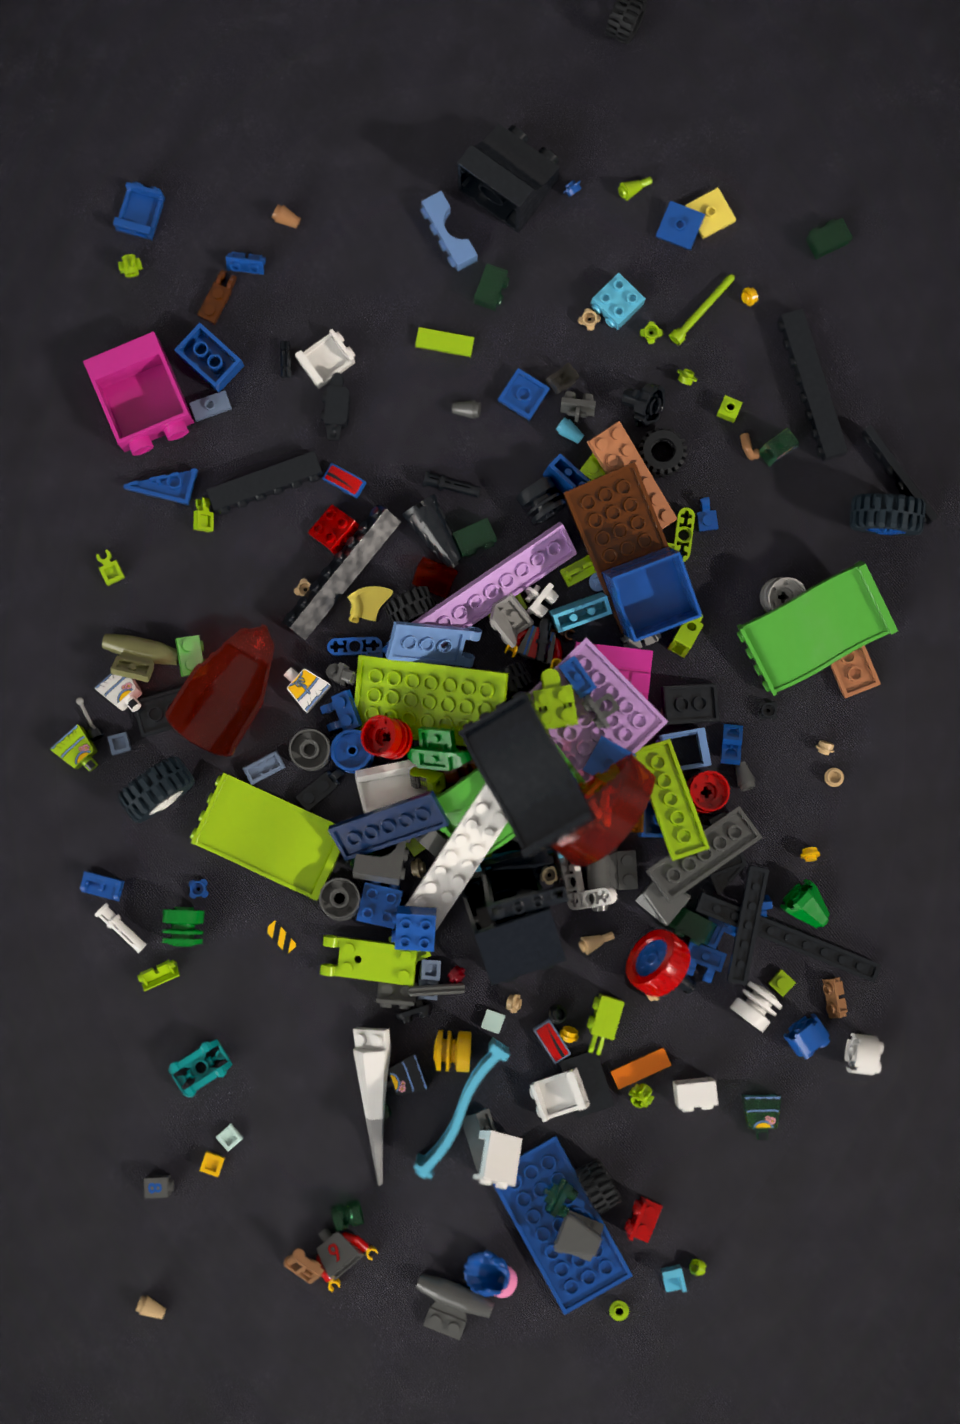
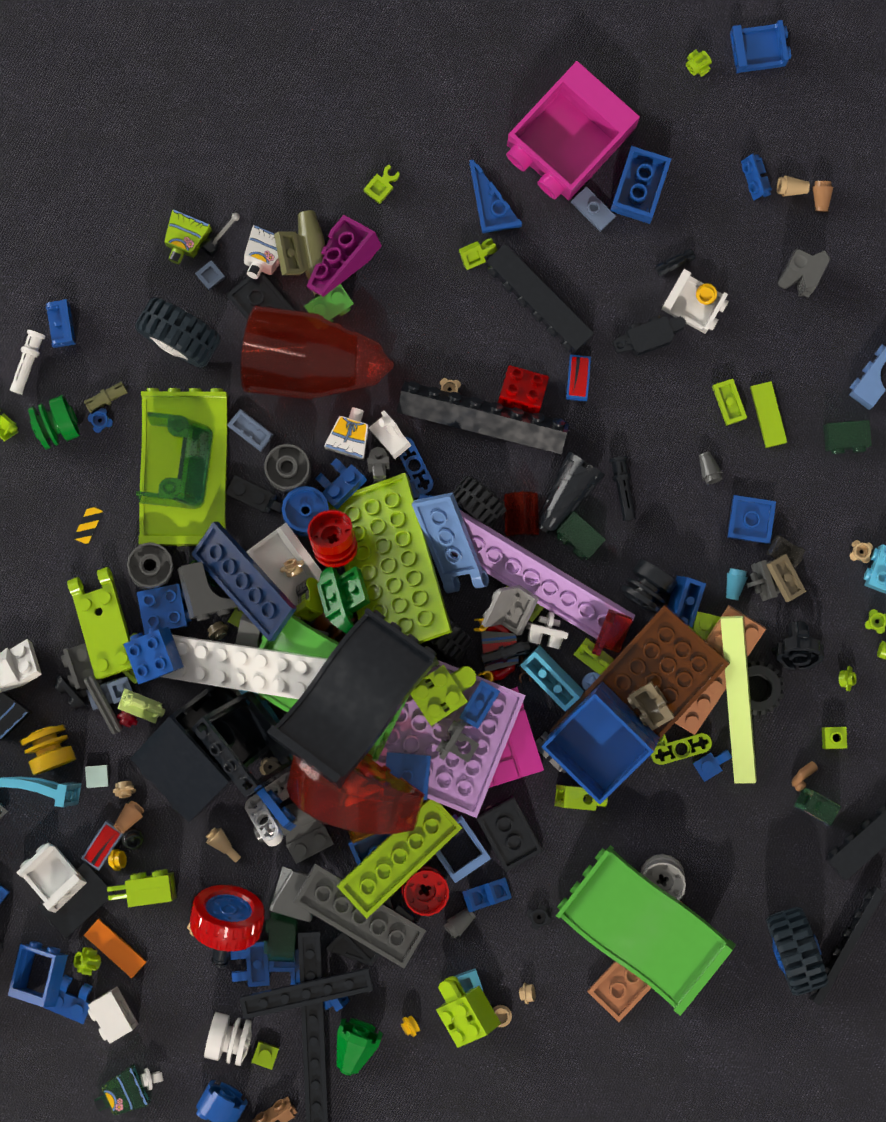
camera: 60 degrees right, 0 degrees up
(153, 622) = (347, 250): none -> magenta wedge
(181, 875) = (105, 397): none -> olive pin
(216, 298) = (706, 165): reddish brown hinge -> none
(266, 238) = (792, 186): none -> tan cone
(290, 837) = (194, 465): none -> clear green windscreen
(321, 654) = (389, 435): none -> white piece
(323, 346) = (706, 294): none -> yellow plate
(341, 259) = (805, 271): none -> dark grey piece
(367, 602) = (464, 457): light yellow arm -> none
(394, 782) = (292, 567): none -> tan plate
(420, 368) = (729, 402): none -> lime plate
(452, 958) = (140, 706): none -> yellowish green hinge
(538, 1009) = (128, 817): none -> medium nougat cone
(565, 546) = (612, 632): none -> clear red panel
(580, 882) = (281, 813): none -> blue plate
(584, 387) = (786, 578): none -> dark tan plate
(624, 1152) = (18, 986): none -> blue window
(639, 540) = (651, 705): none -> dark tan cylinder
(665, 469) = (738, 699): none -> yellowish green tile
(670, 1127) = (70, 1005): none -> blue plate
(759, 1085) = (148, 1078): none -> white plate
(795, 792) = (469, 979): none -> medium azure panel
(820, 804) = (467, 1013): none -> lime brick

